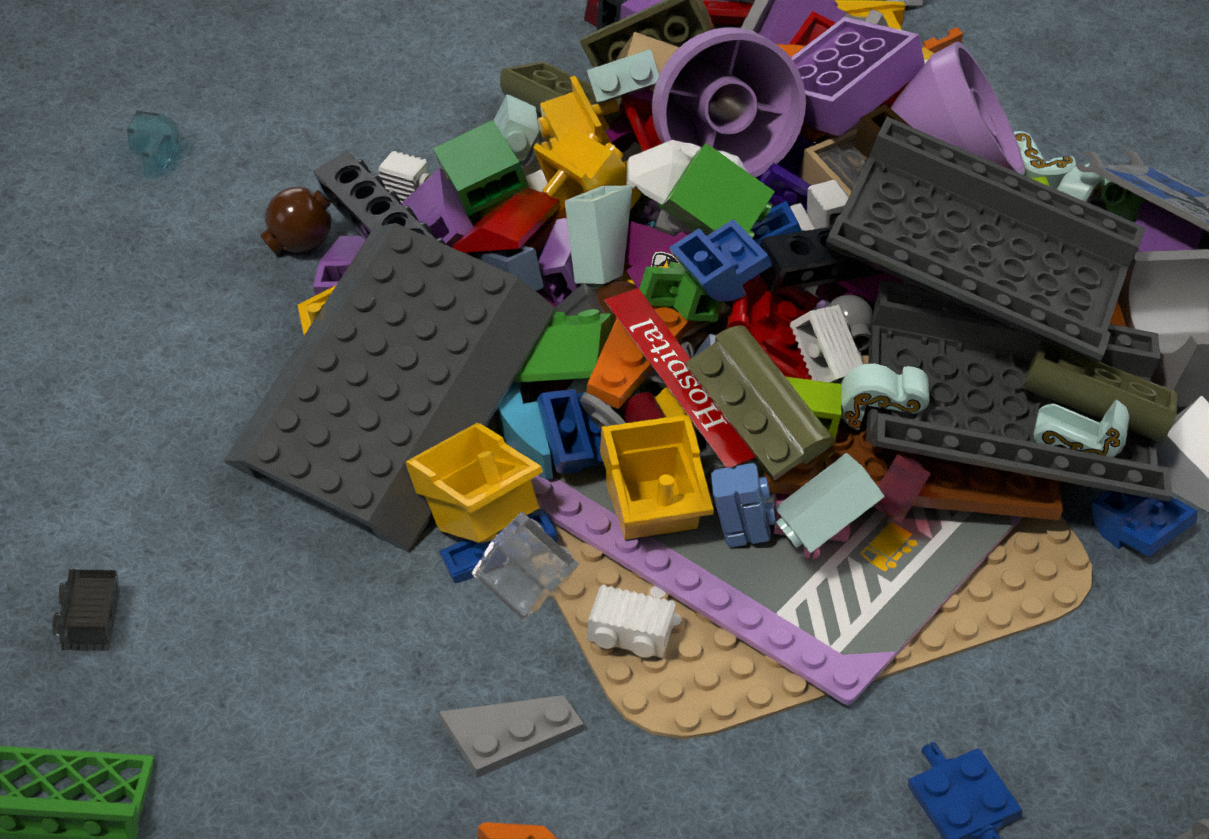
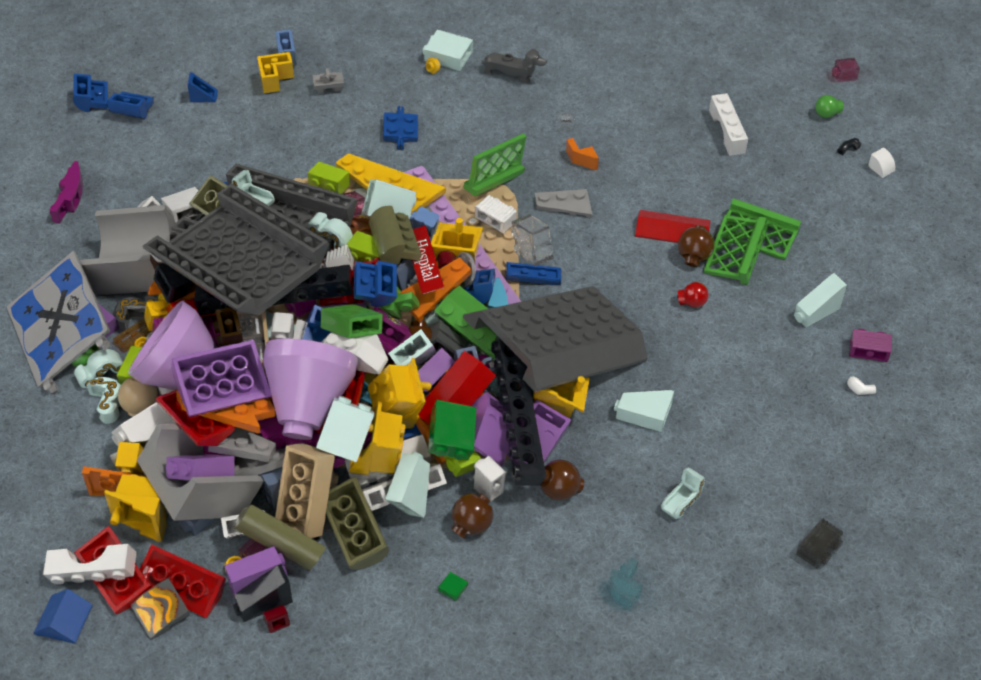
camera: 155 degrees left, 5 degrees up
(66, 719) = (749, 255): none -> bright green fence
(88, 610) = (731, 298): clear smoke brick -> none
(97, 263) = (684, 494): none -> light aqua animal
(167, 587) = (693, 295): none -> red piece
(189, 682) = (695, 245): none -> reddish brown brick
(199, 368) = (645, 408): none -> light aqua slope
(255, 748) = (665, 226): none -> red slope
(396, 96) = (453, 586): none -> green tile
(409, 138) = (471, 515): none -> reddish brown brick
(474, 483) = (538, 272): yellow piece -> none
(686, 713) = (501, 171): none -> bright green fence
(875, 618) = (363, 171): none -> yellow wing
(1002, 589) = (329, 177): none -> lime piece

